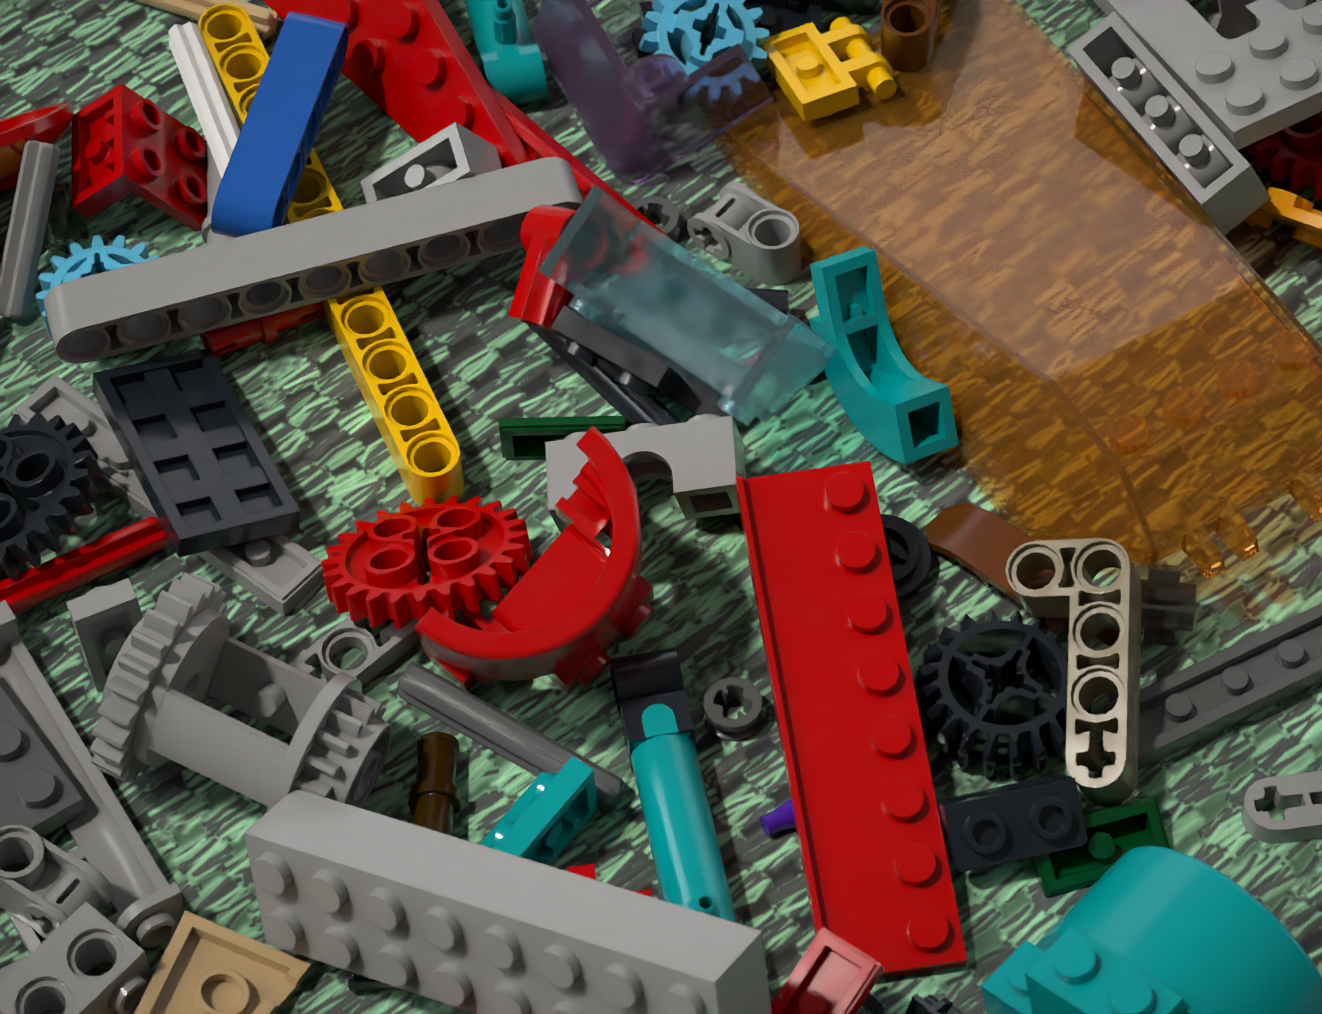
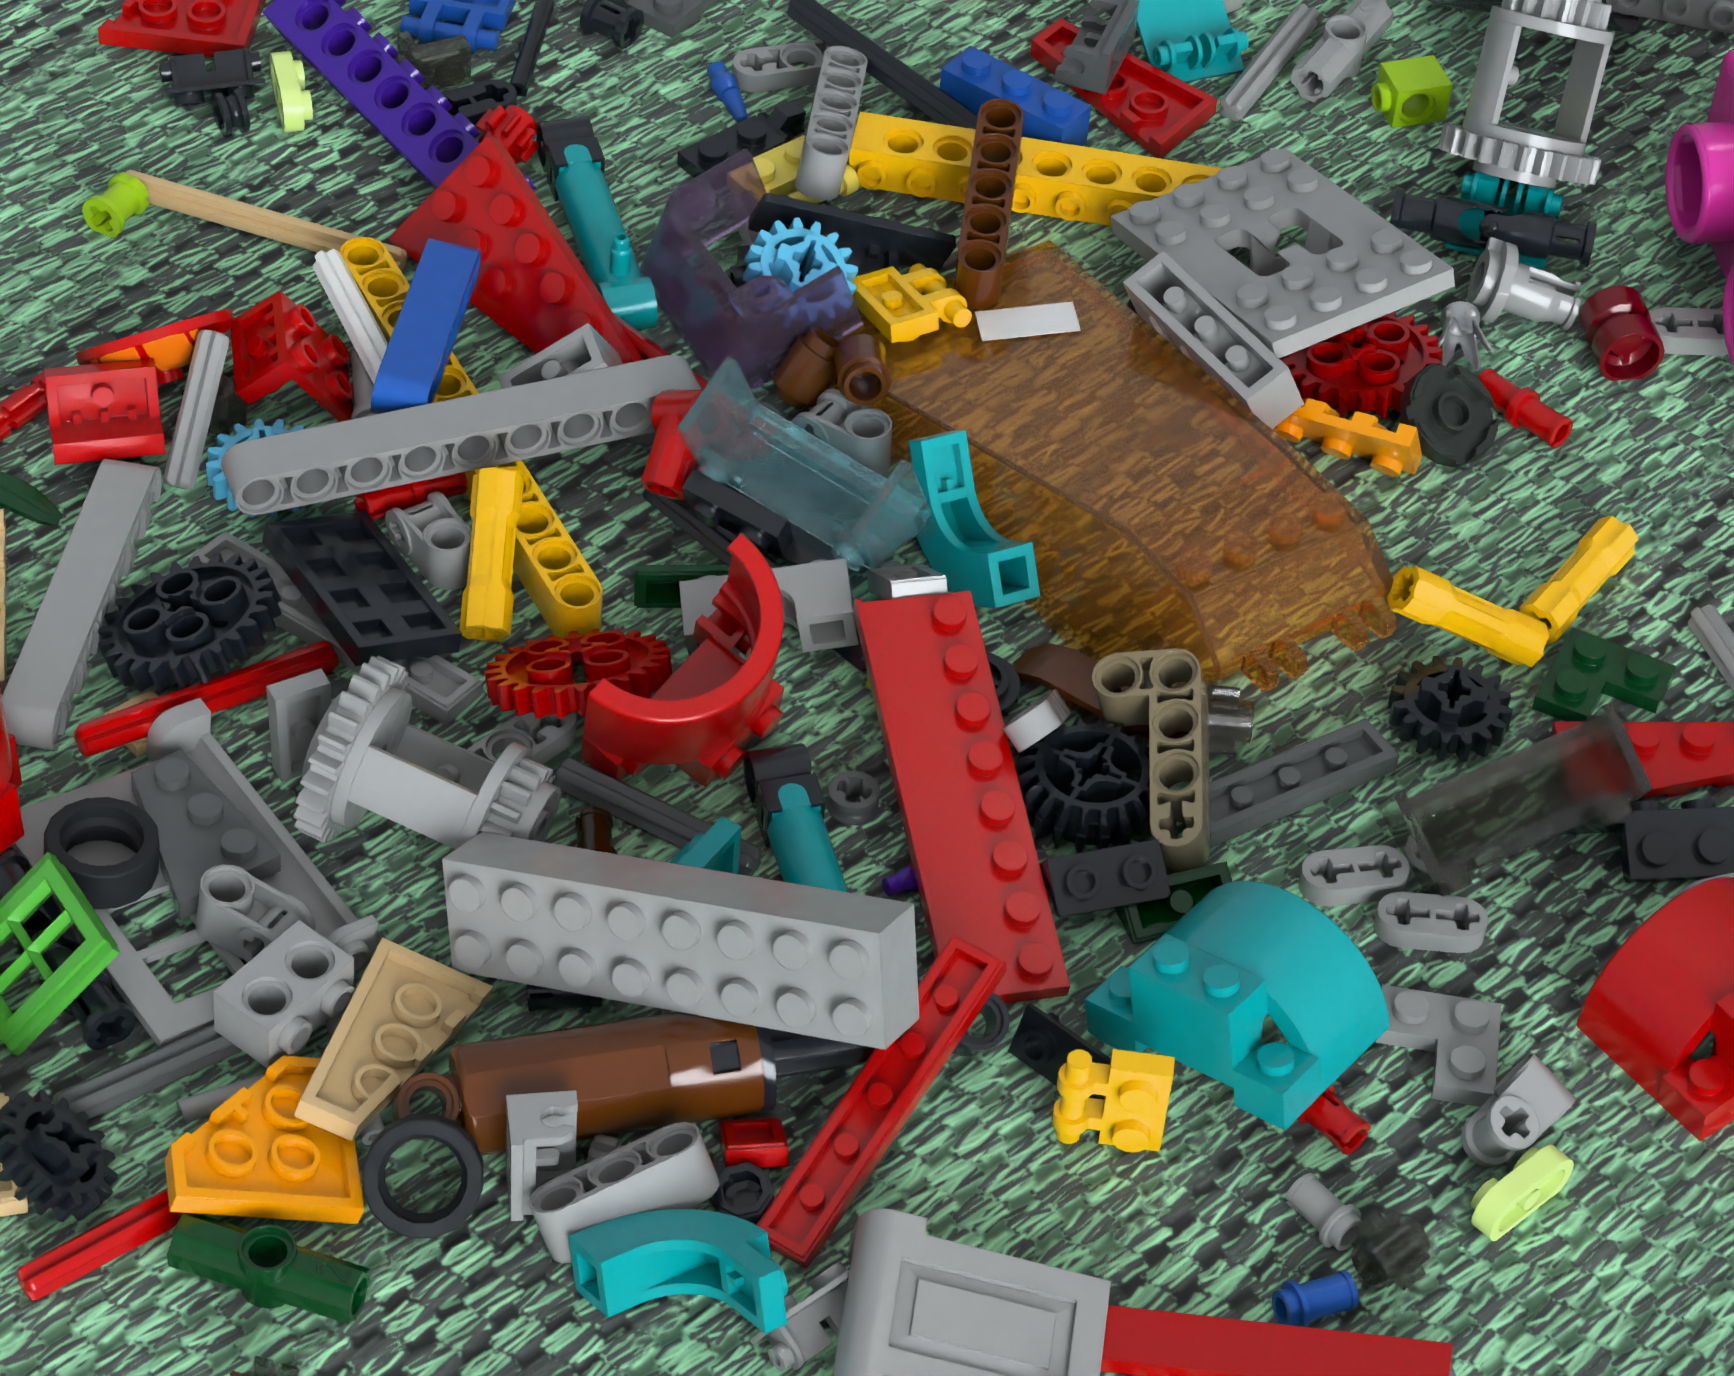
camera: 10 degrees left, 10 degrees down
(283, 385) = (433, 540): none -> light grey piece
(342, 366) = (494, 516): none -> yellow axle
(711, 154) = (806, 368): none -> reddish brown brick
(767, 164) = (862, 369): none -> reddish brown brick
(801, 439) = (898, 580): none -> light grey hinge
(942, 619) = (1036, 720): none -> light grey beam
(961, 89) = (1027, 321): none -> white sticker

